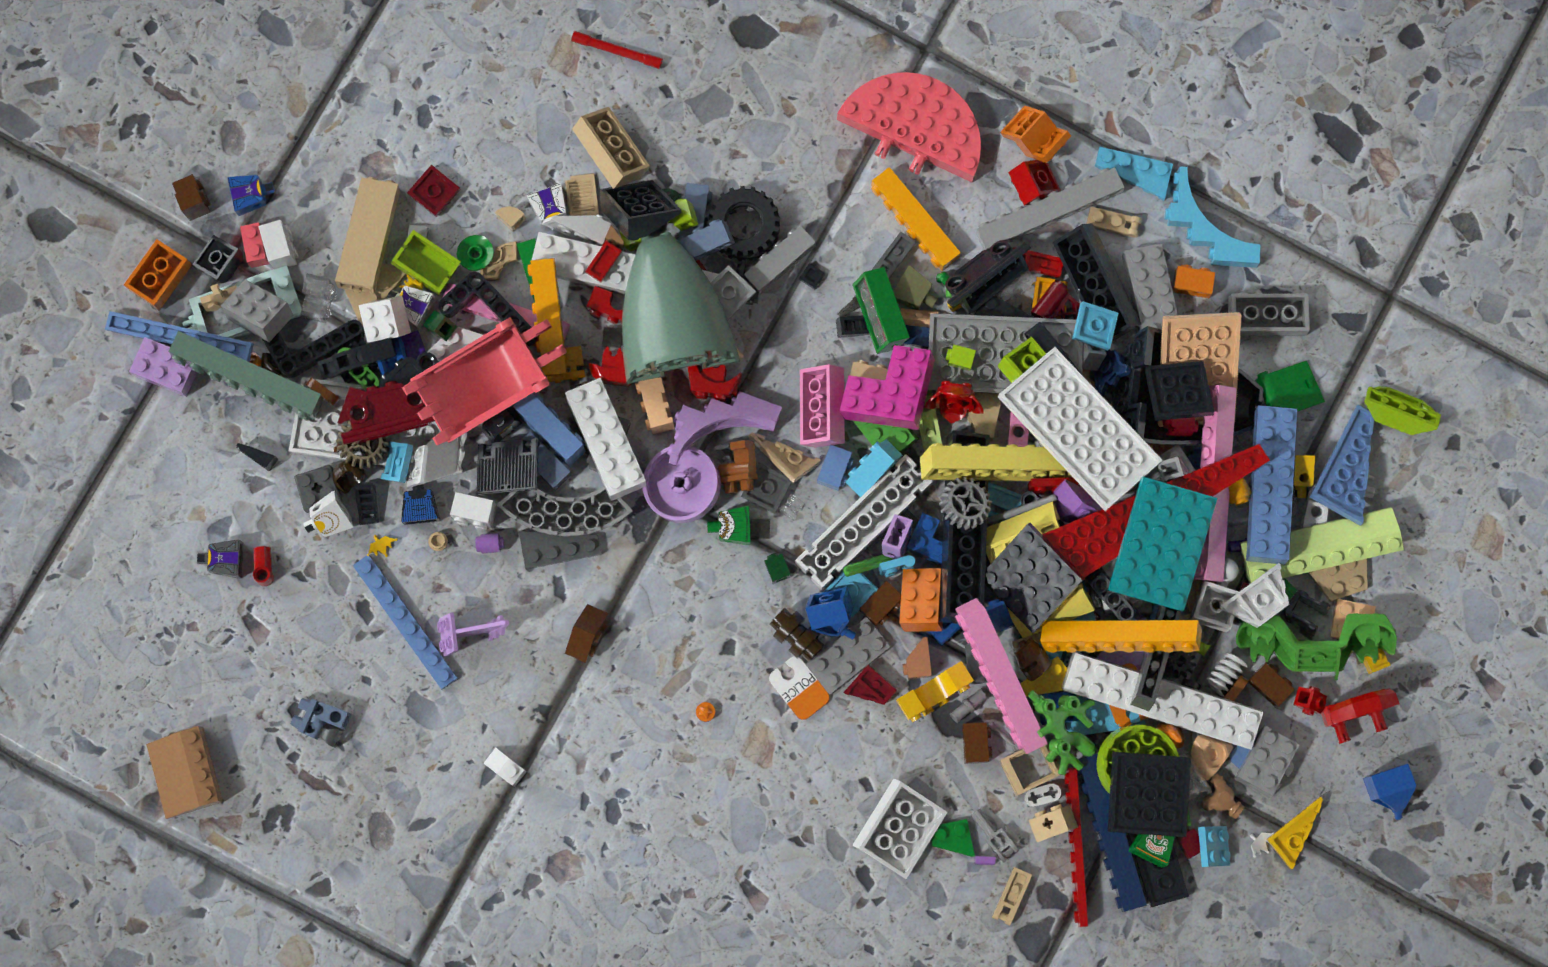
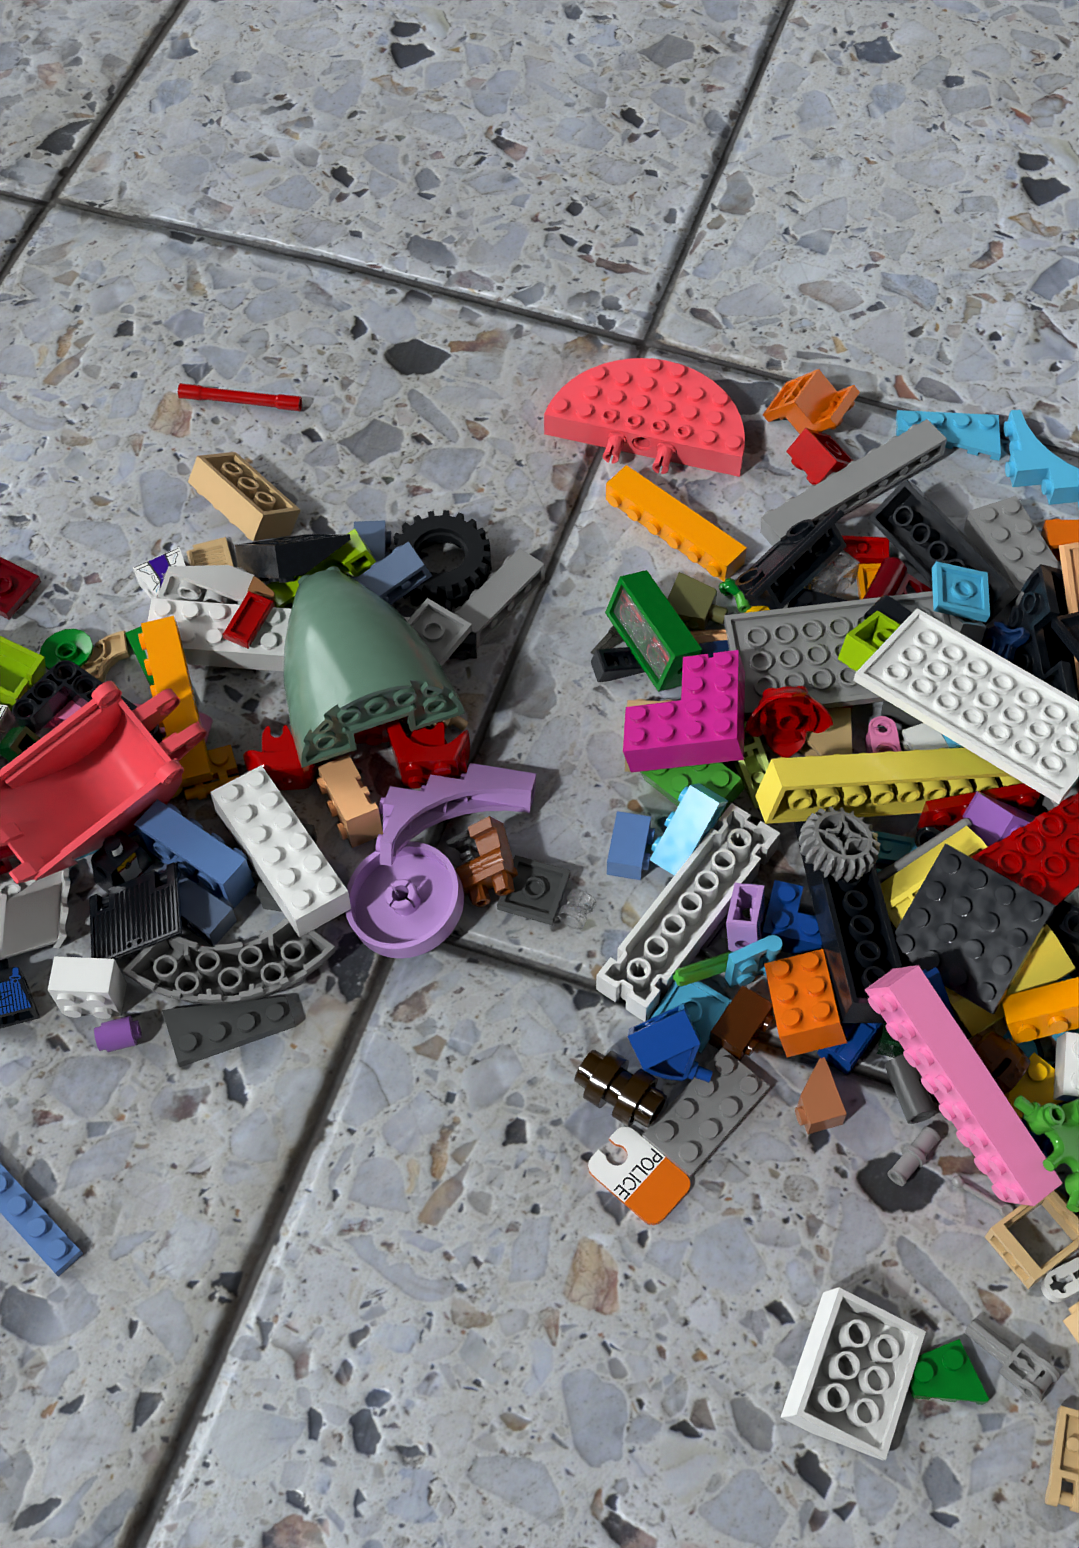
camera: 10 degrees left, 20 degrees down
(438, 541) = (36, 1046): tan plate -> none
(449, 634) = (110, 1162): lavender piece -> none
(505, 767) = (174, 1386): white slope -> none
(511, 217) = (114, 601): tan brick -> none
(586, 633) = (281, 1142): reddish brown brick -> none
(600, 305) = (254, 688): red arch -> none
(612, 337) = (275, 723): clear smoke tile -> none
(705, 712) = (495, 1237): orange tile -> none
(732, 526) = (491, 949): green torso -> none
(760, 529) = (534, 948): clear smoke tile -> none
(777, 568) = (570, 998): dark green brick -> none
(788, 460) = (555, 845): tan wing -> none
(811, 276) = (546, 613): black tile -> none
(820, 406) = (594, 762): bright pink brick -> none
(871, 686) = (753, 1152): dark red wing -> none
(895, 253) = (661, 561): dark grey plate -> none
(935, 692) = (860, 1140): yellow brick -> none
(960, 357) = (782, 659): lime brick -> none
(976, 743) = (942, 1211): reddish brown brick -> none
(983, 860) = (1008, 1404): medium lavender tile -> none
(1114, 222) = (945, 491): tan plate -> none

